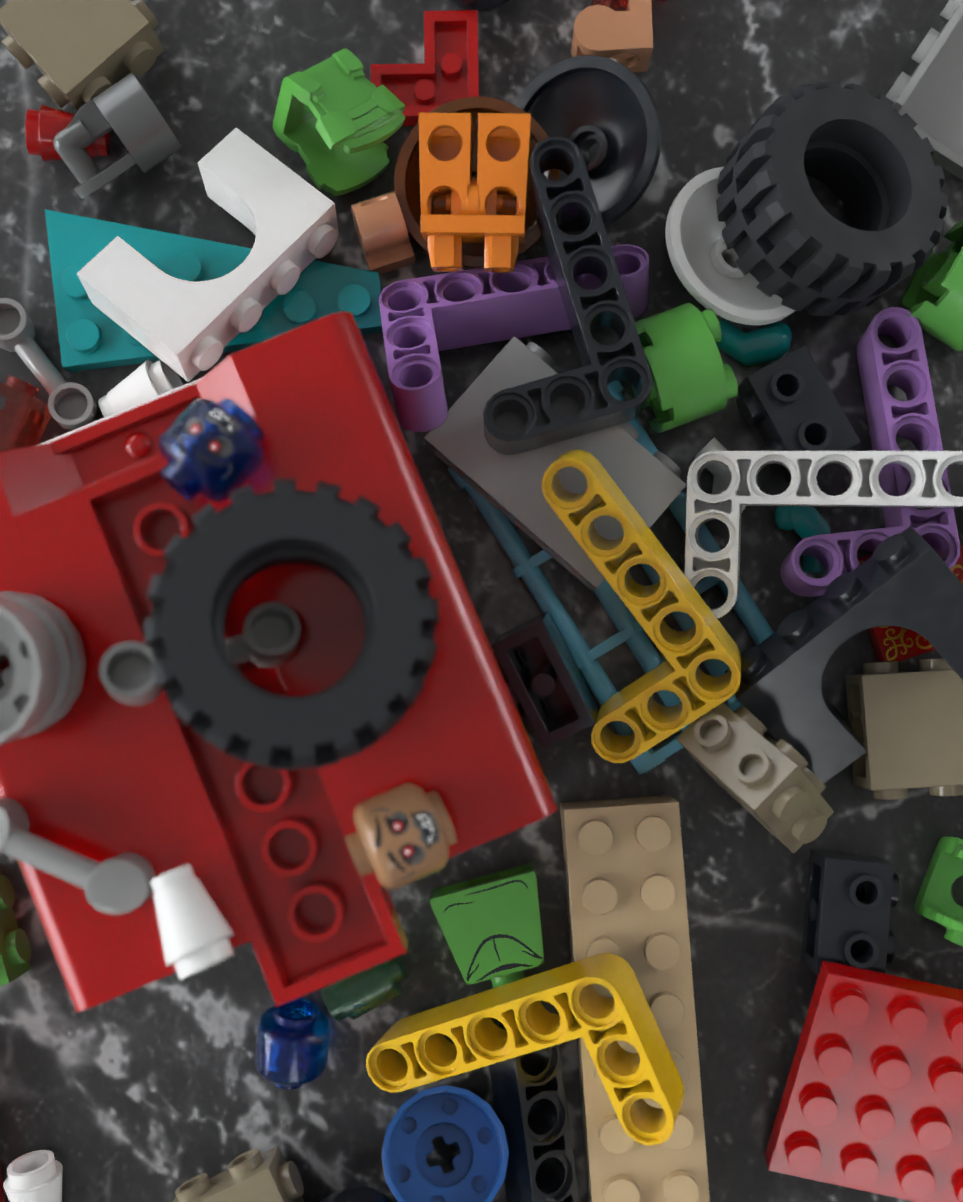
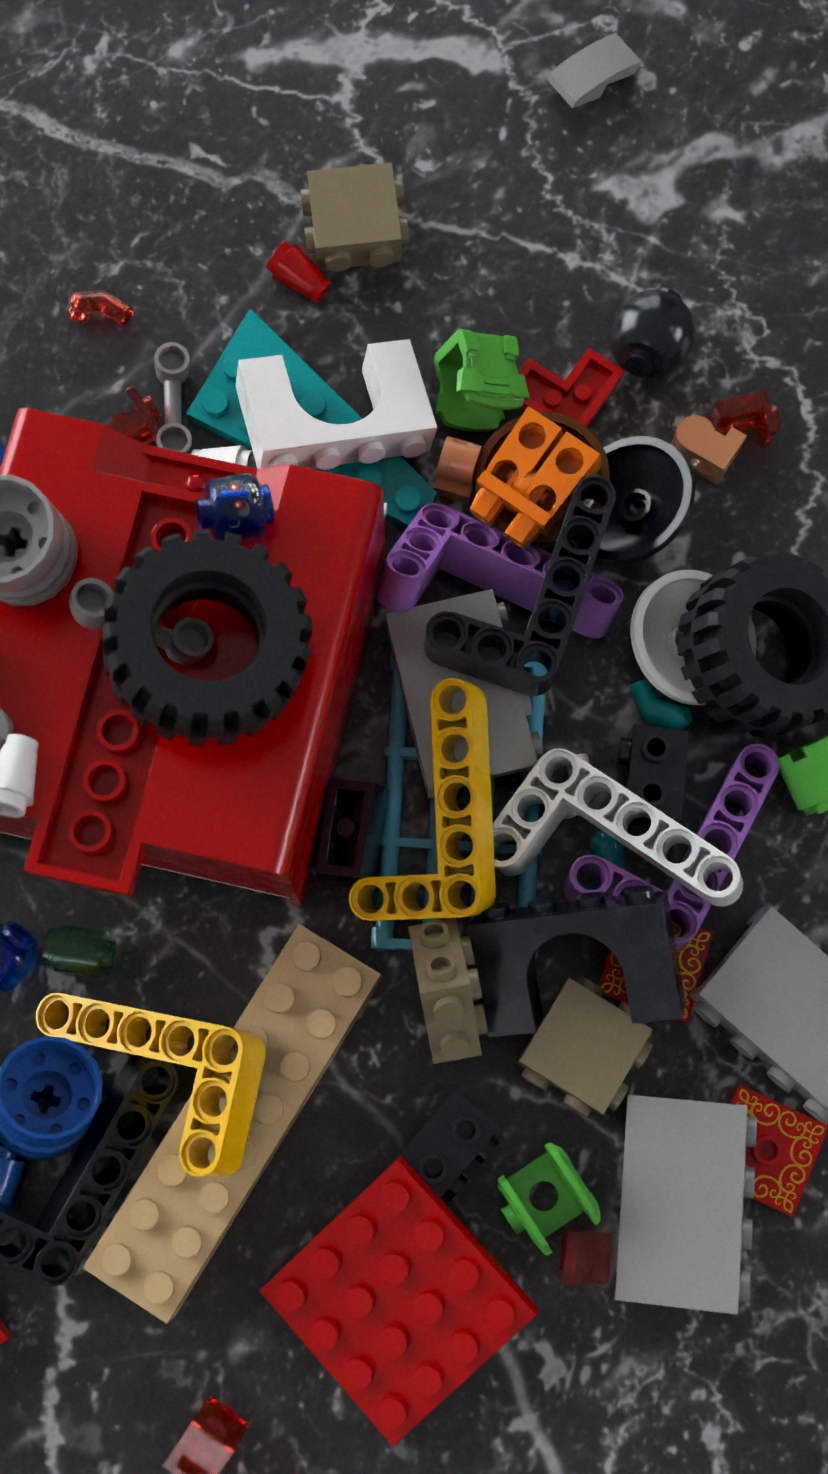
camera: 30 degrees right, 10 degrees down
(136, 122) = (347, 293): dark grey piece -> none
(401, 835) = (177, 813): medium nougat head -> none
(492, 924) = (195, 973): bright green torso -> none
(684, 366) = (590, 685): bright green brick -> none

